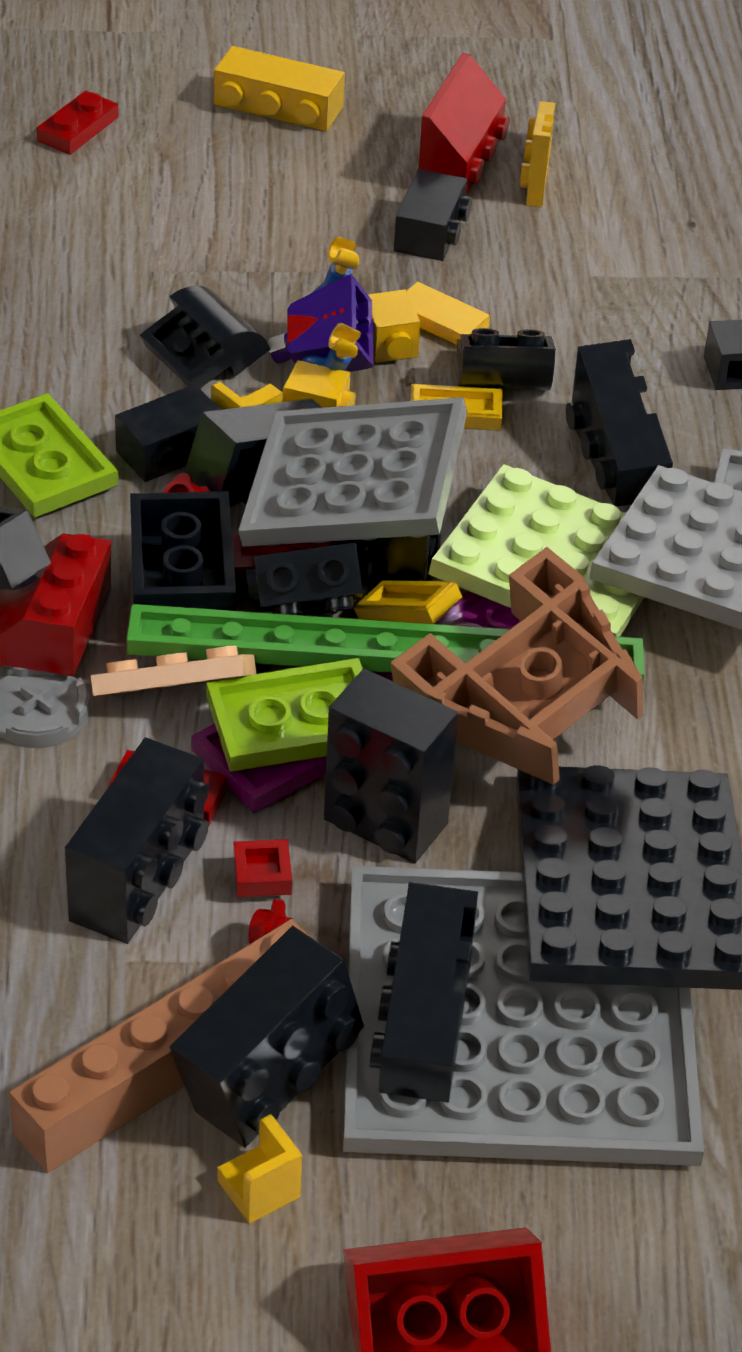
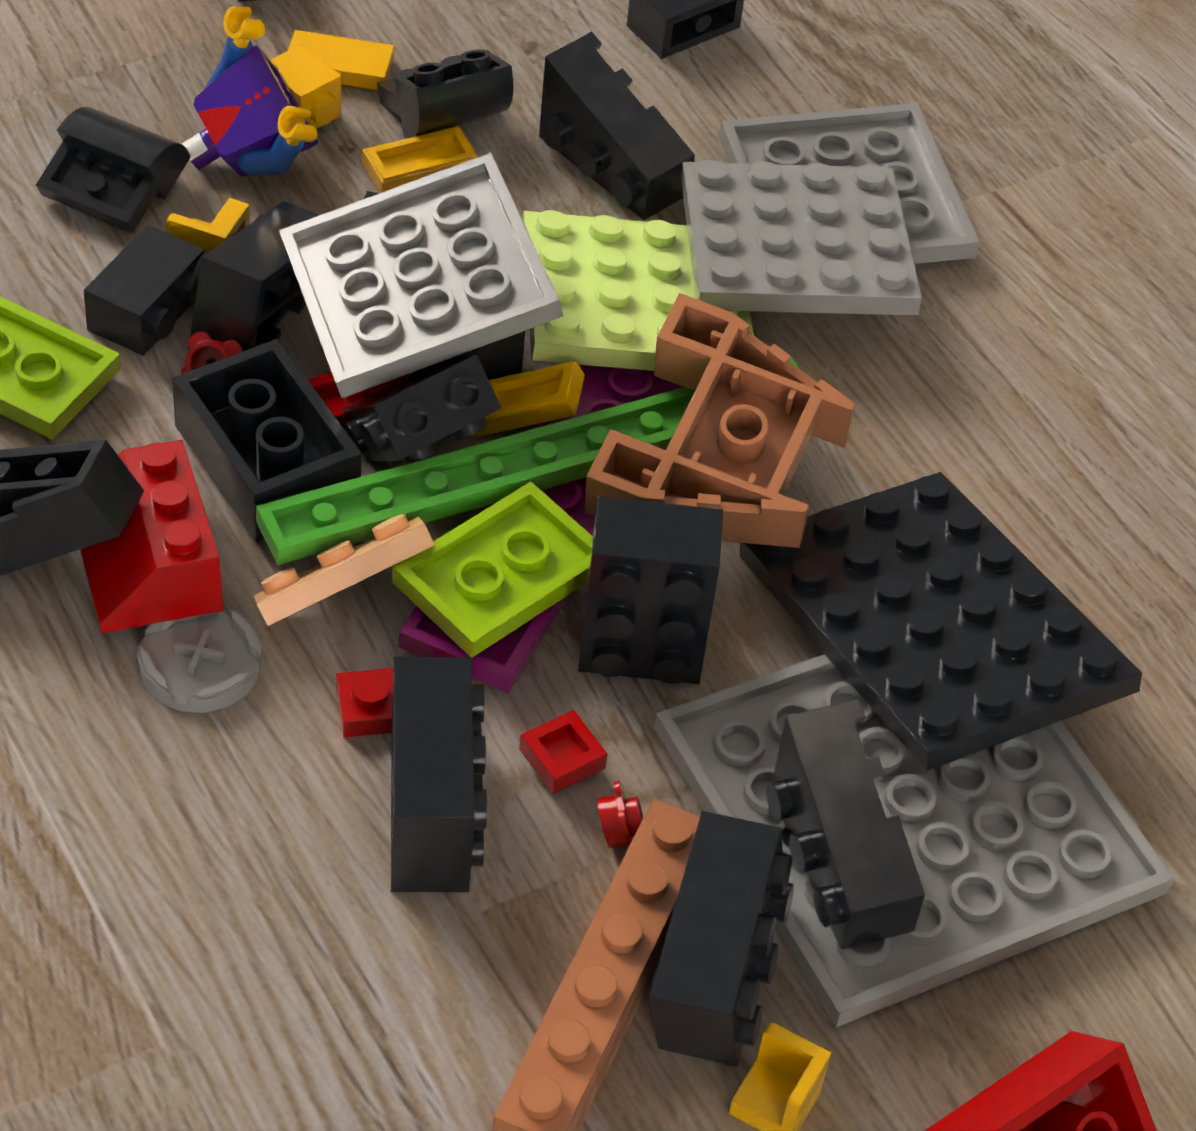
camera: 30 degrees left, 5 degrees up
(319, 383) = (274, 181): yellow brick -> none

